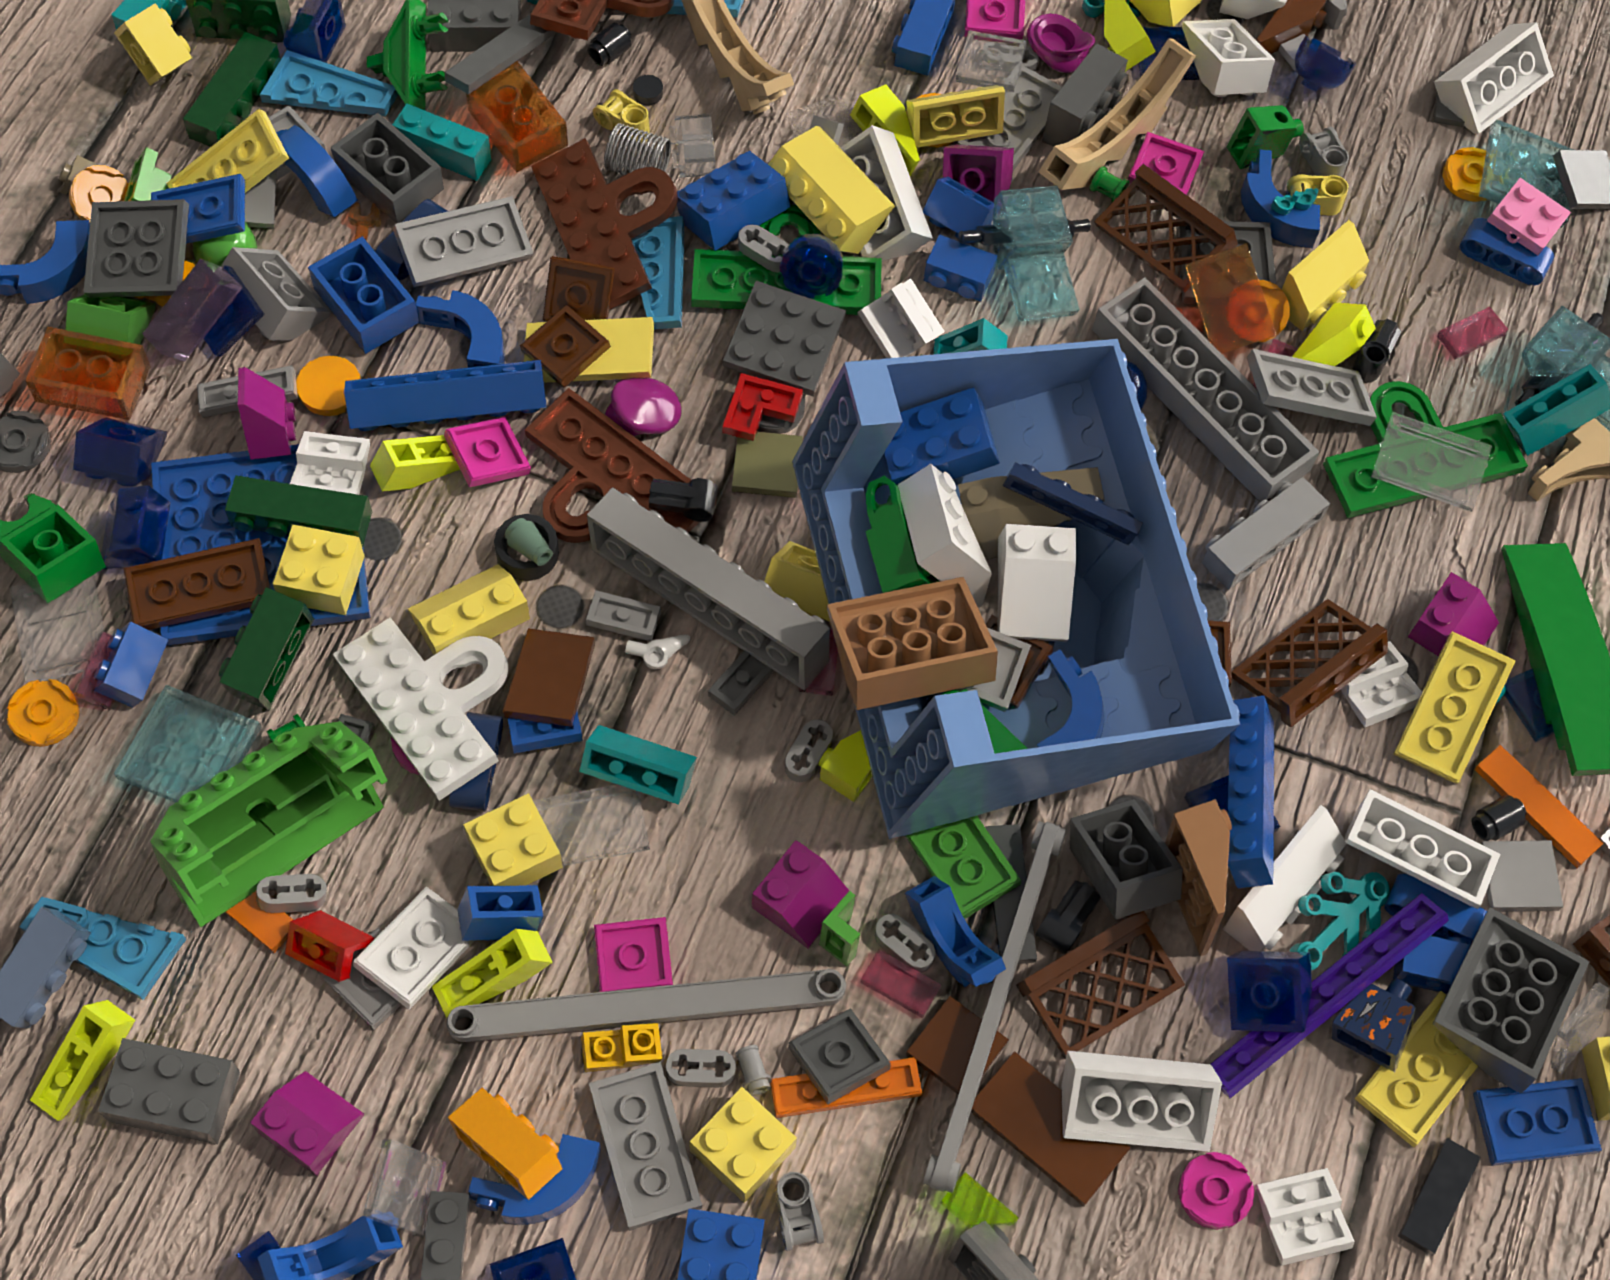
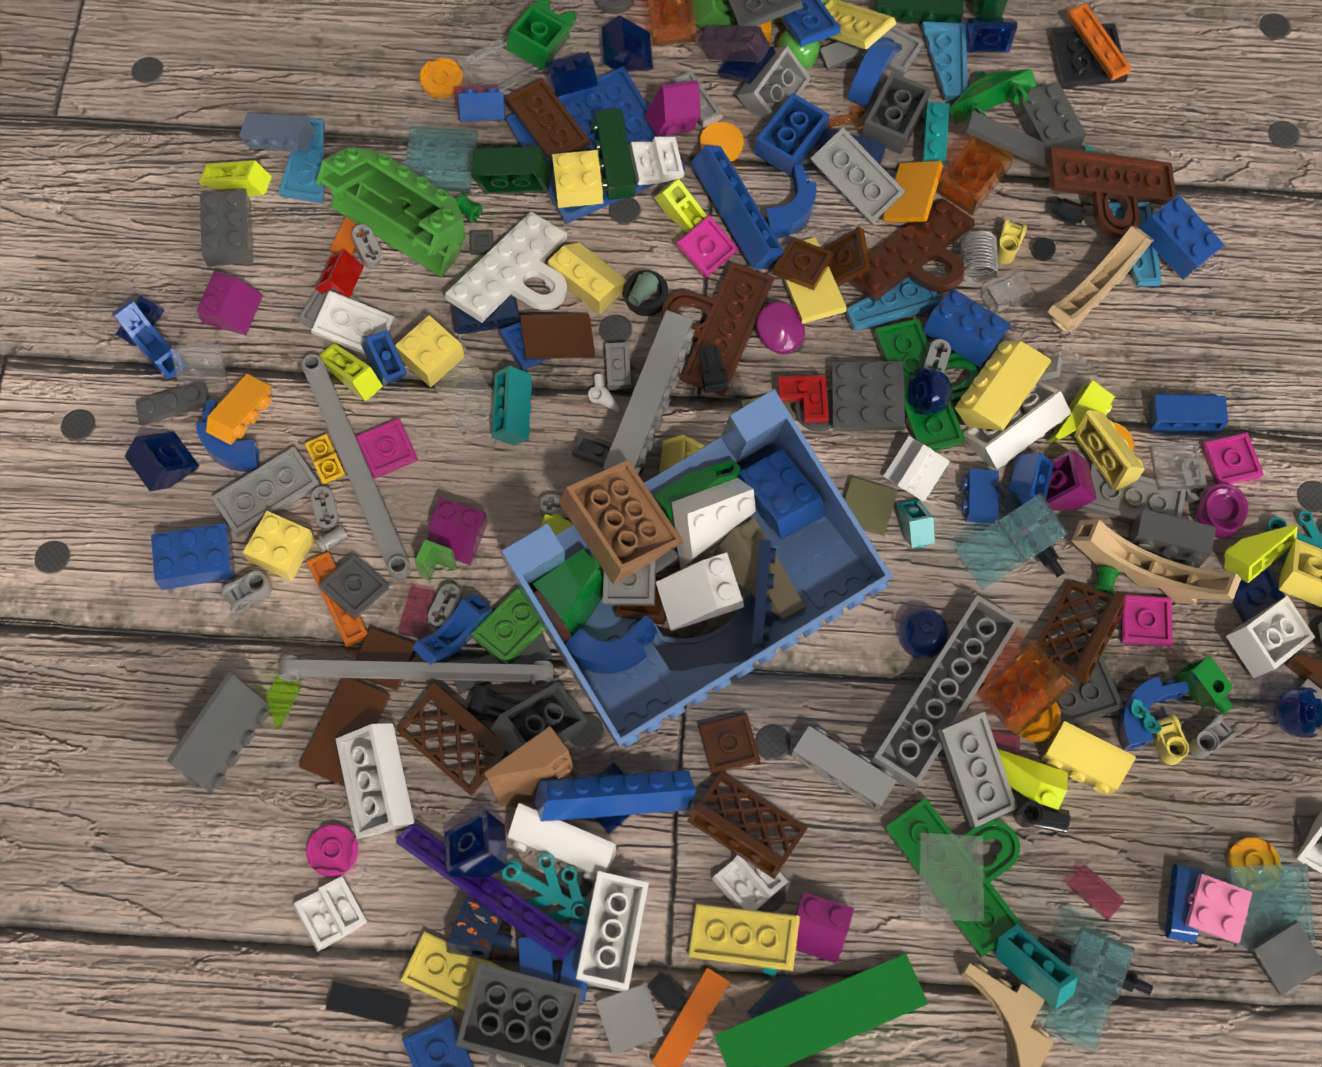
camera: 75 degrees right, 5 degrees up
(502, 176) = (920, 185): none -> light orange tile

